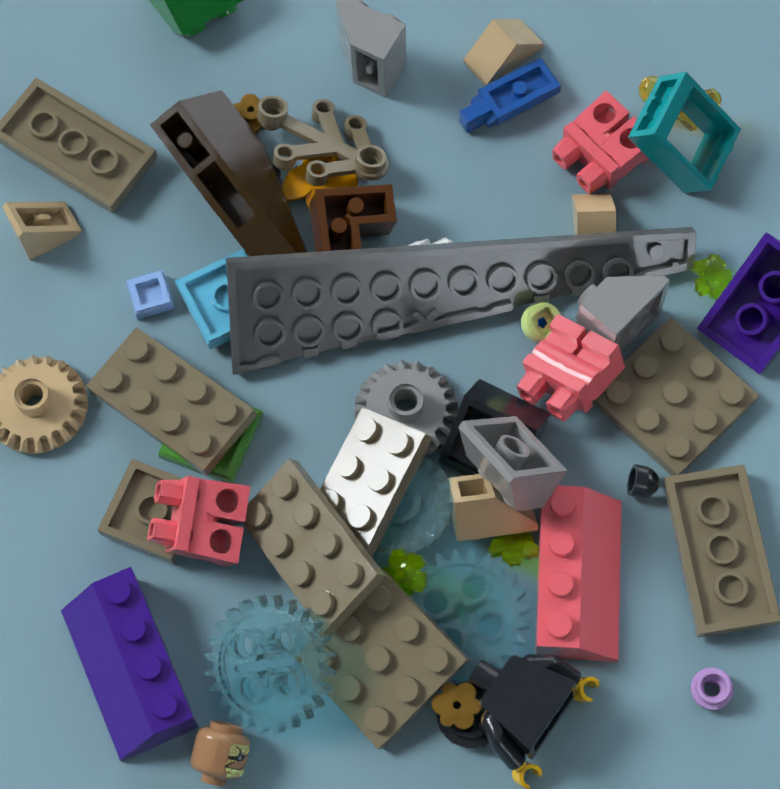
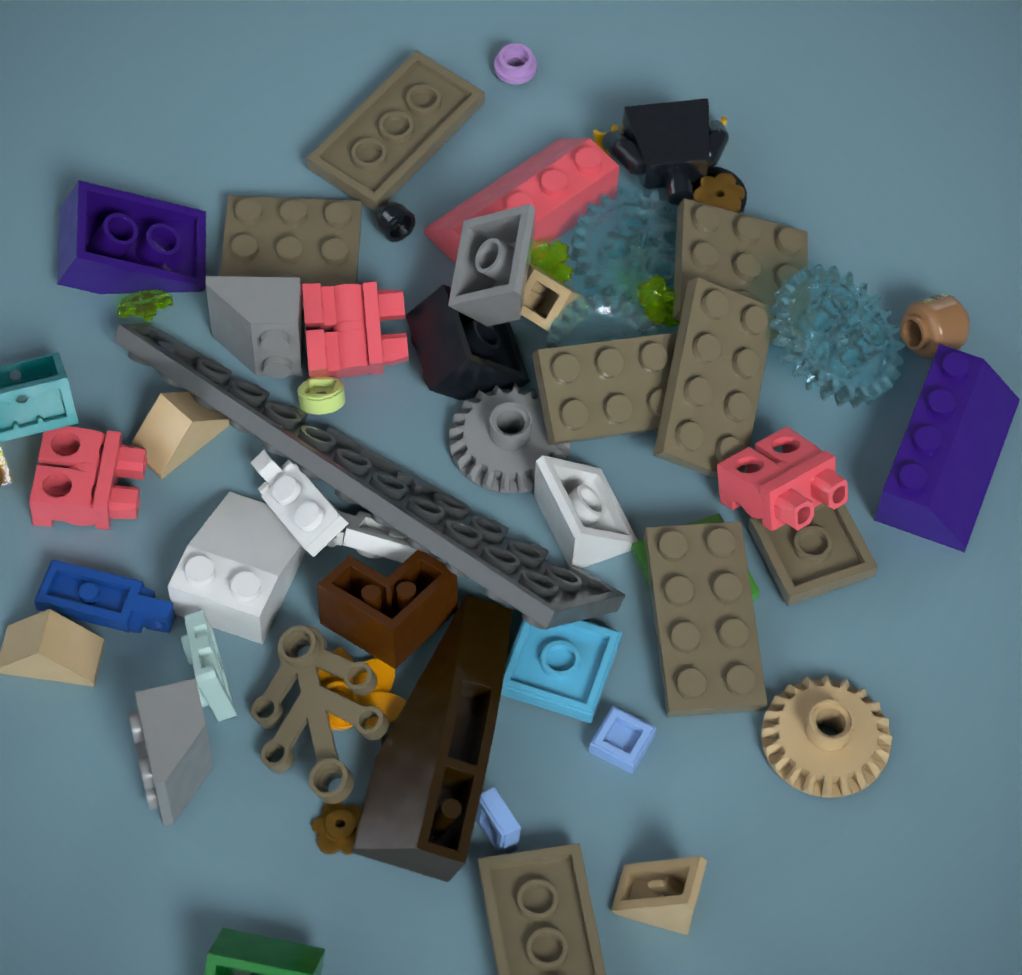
camera: 140 degrees left, 10 degrees down
(166, 179) = (498, 822): none -> light blue tile
(308, 397) = (581, 511): none -> white slope
(406, 107) = (204, 654): none -> light aqua wing
(445, 226) = (298, 503): none -> white hinge
(462, 182) = (237, 568): none -> white slope

